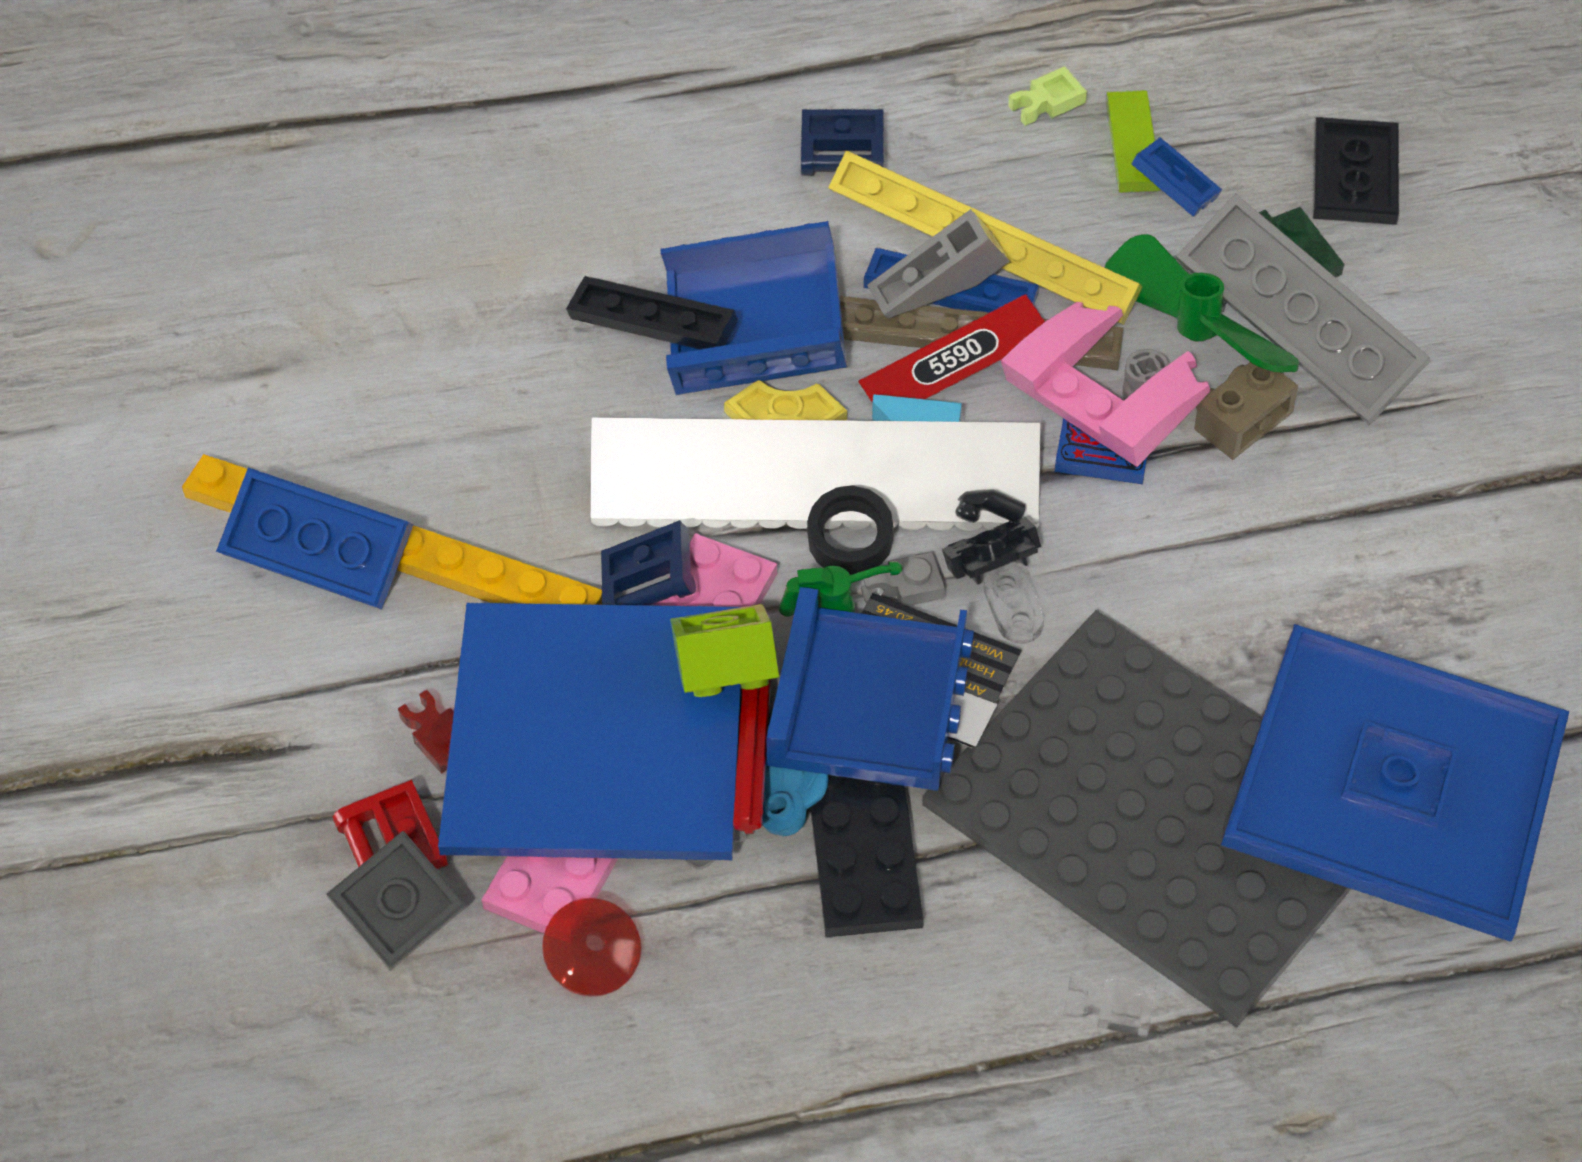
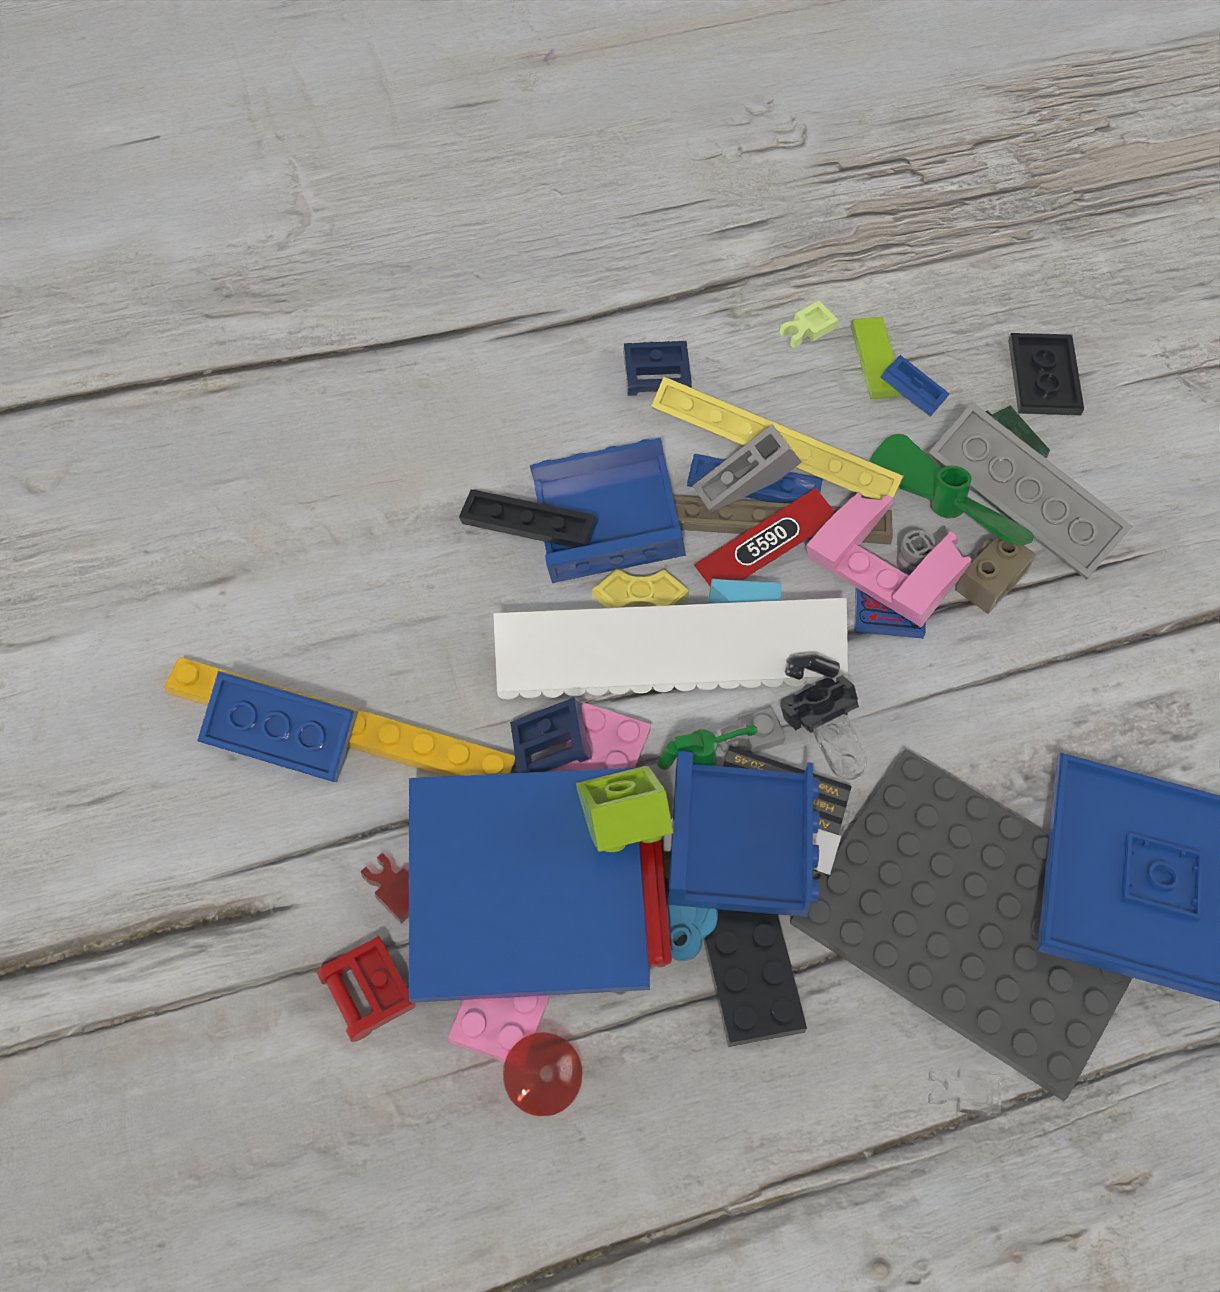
camera: 10 degrees left, 5 degrees up
(396, 900) = (378, 1046): dark grey tile -> none
(845, 500) = (711, 668): black tyre -> none

